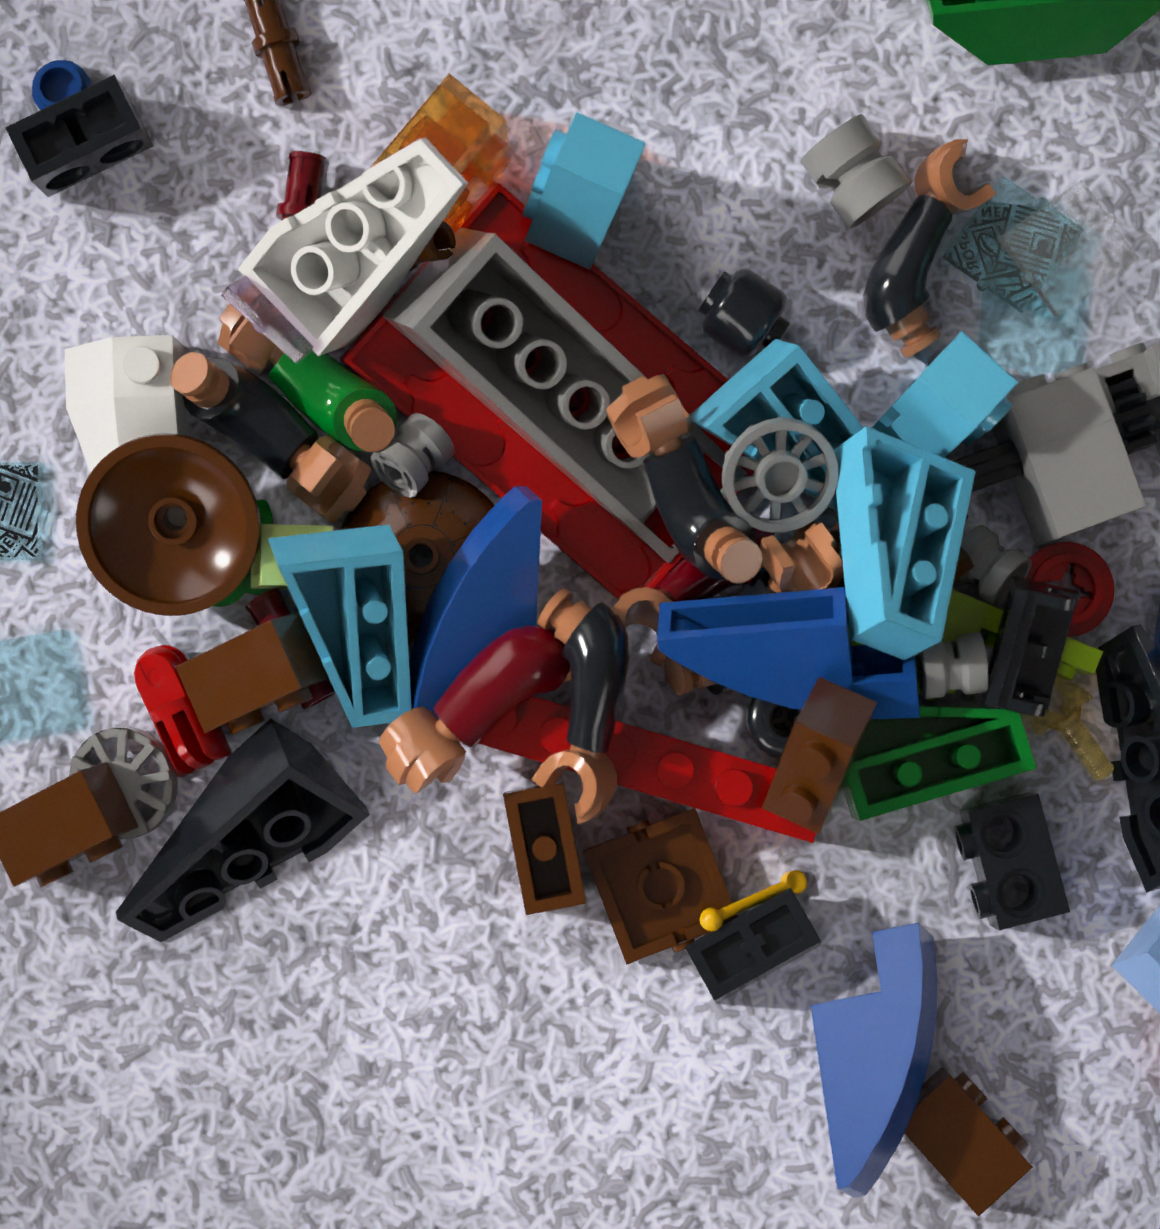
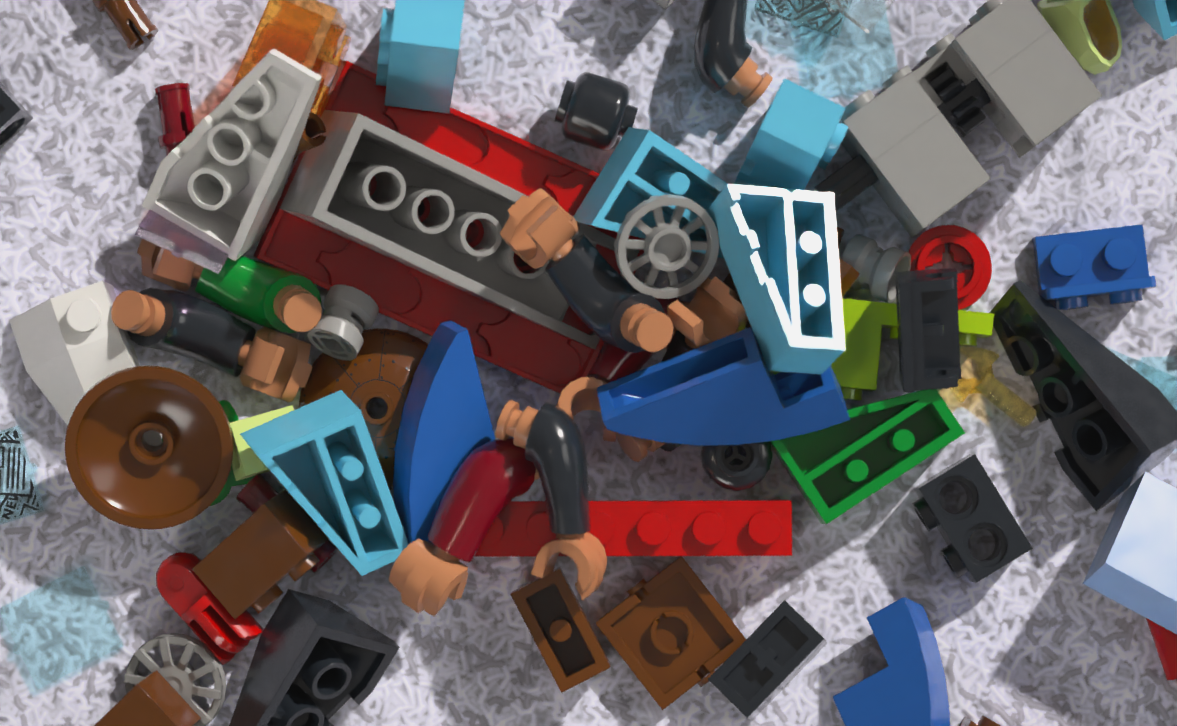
camera: 15 degrees left, 0 degrees up
(712, 918) = (725, 647): yellow hinge -> none
(819, 754) = (771, 478): reddish brown brick -> none
(953, 666) = (866, 366): light grey wheel -> none

